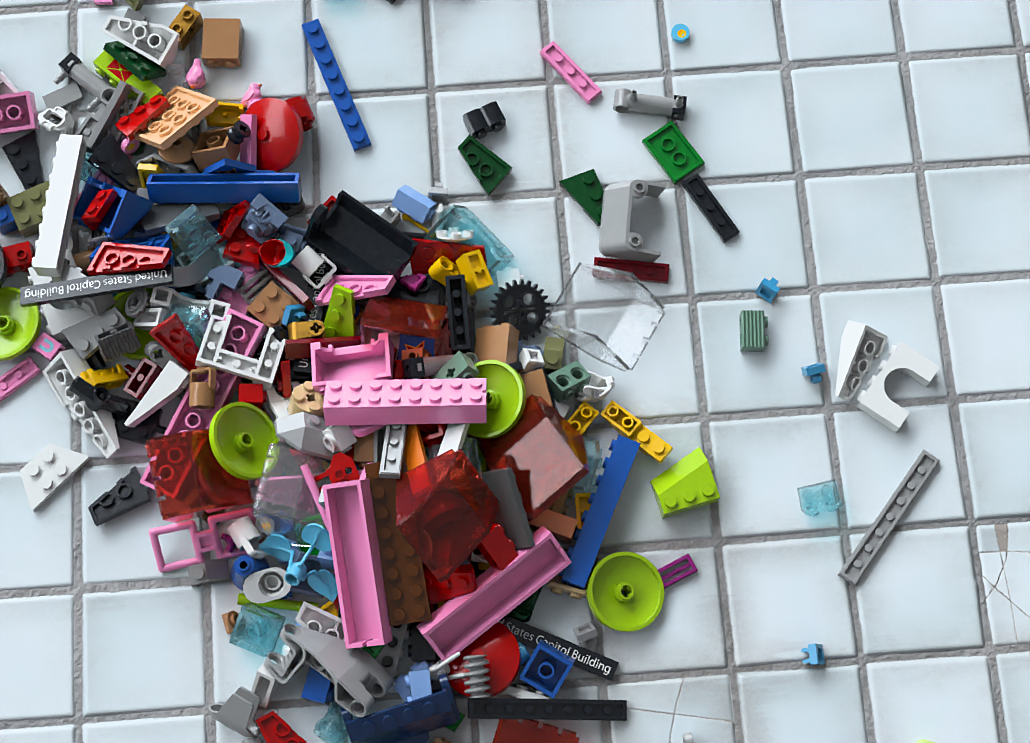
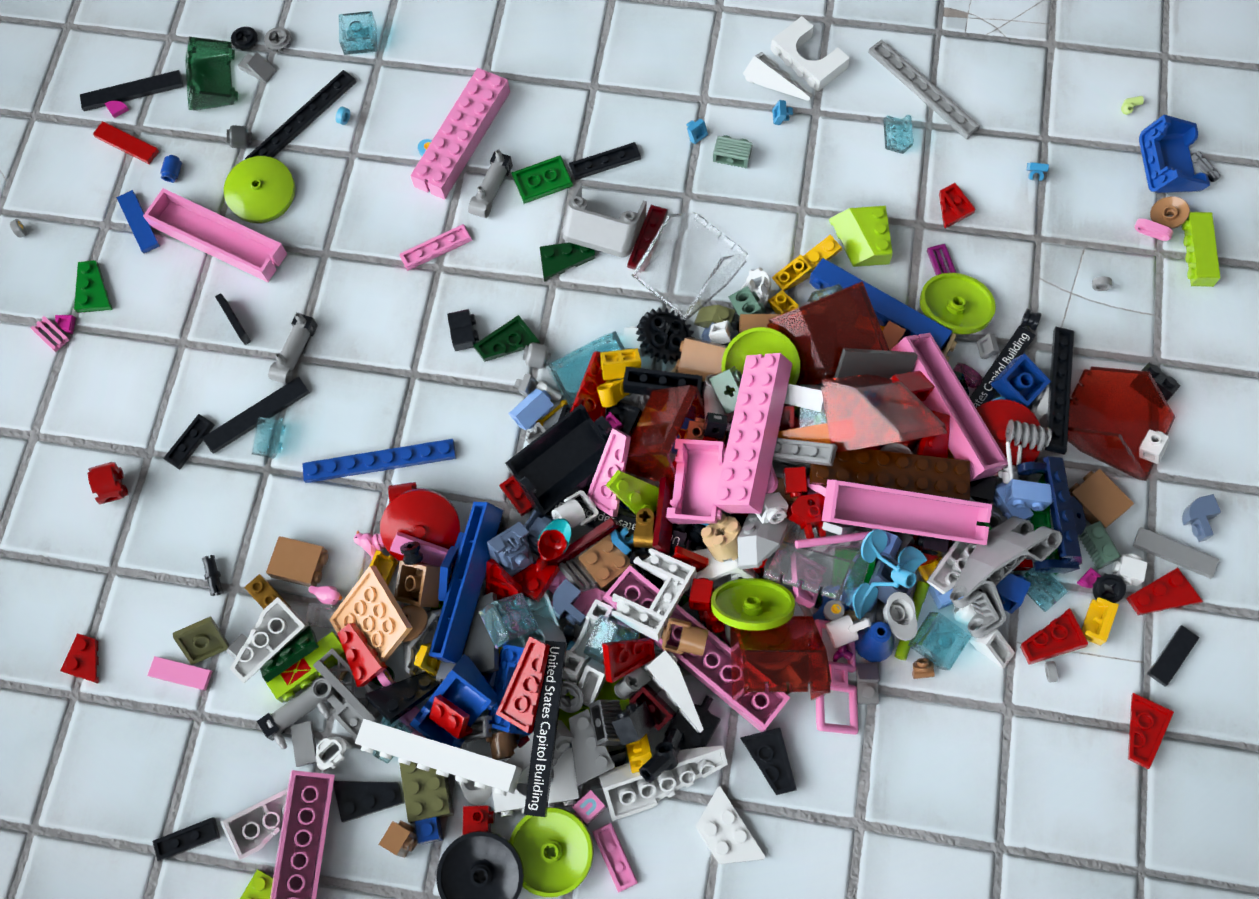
camera: 70 degrees left, 5 degrees down
(120, 362) = (633, 722): none -> black brick
(238, 712) = (1019, 677): light grey piece -> none
(367, 451) = (795, 481): none -> red brick
(454, 235) = (576, 376): white dish -> none
(473, 195) = (536, 355): none -> light grey head
(544, 613) = (971, 376): none -> clear pink rock
(627, 672) = (1030, 319): none -> black wheel
(704, 60) = (460, 133): none -> bright pink piece
(746, 572) = (954, 205): none -> red wing

